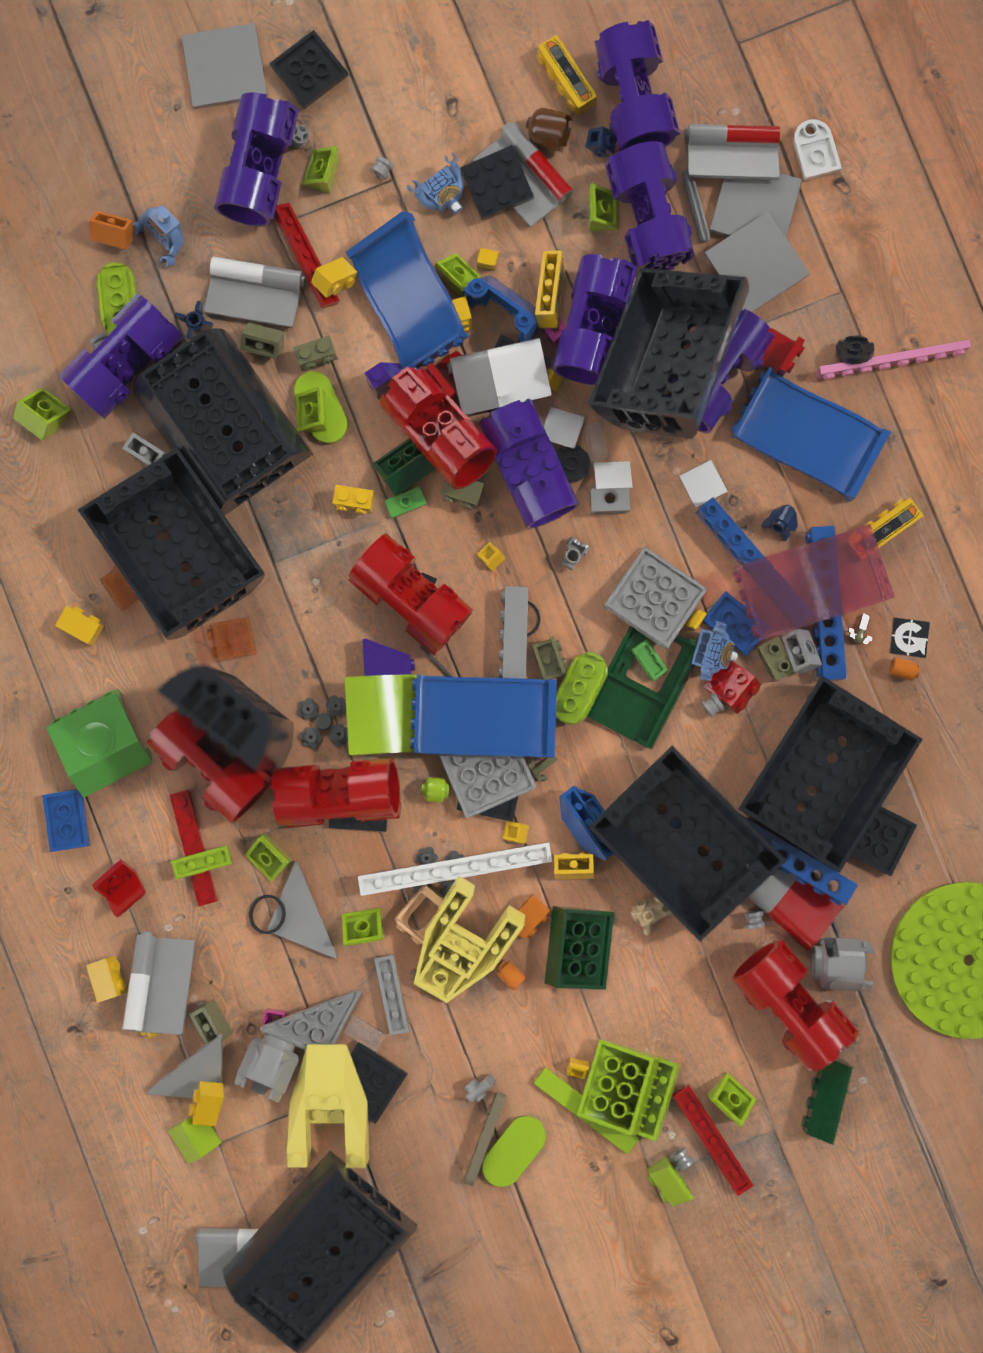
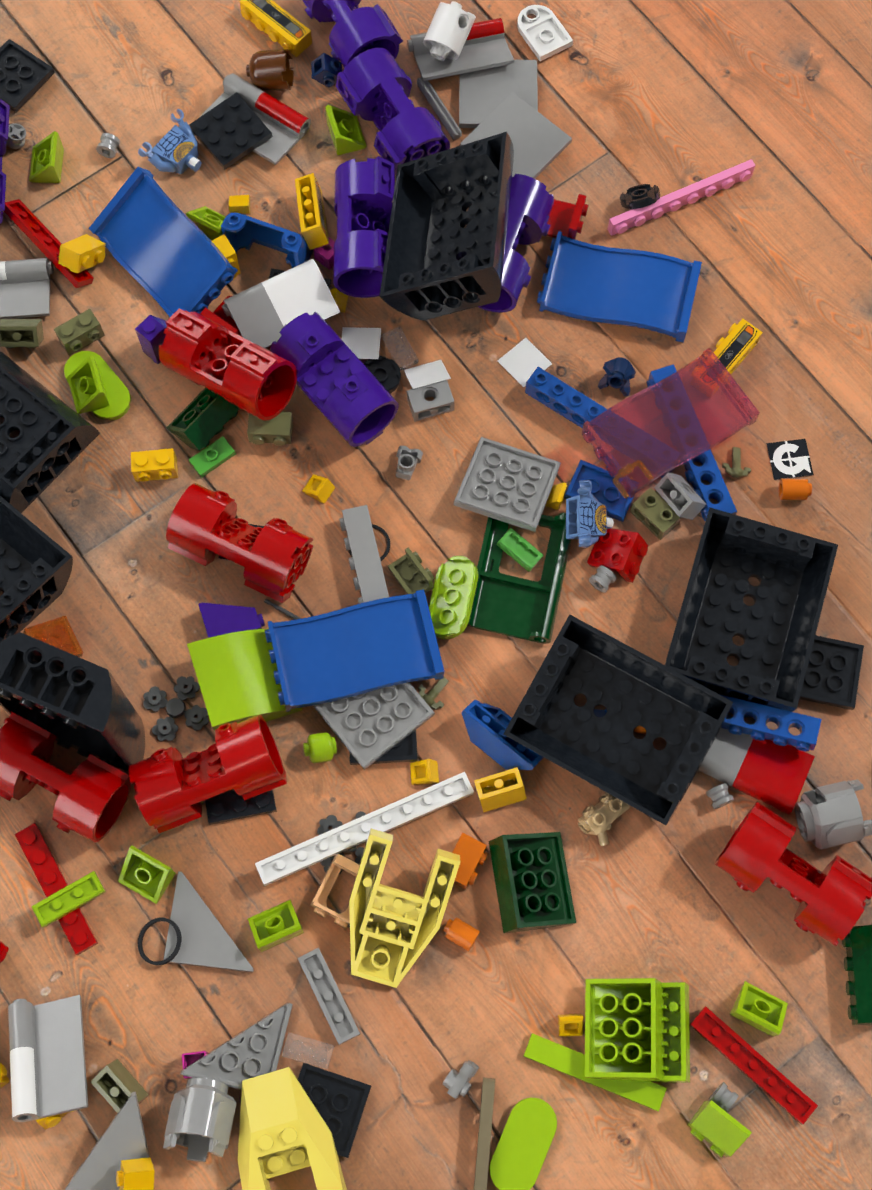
camera: 20 degrees left, 15 degrees down
(725, 135) = (448, 31): none -> white cylinder
(759, 621) = (625, 471): none -> clear orange piece

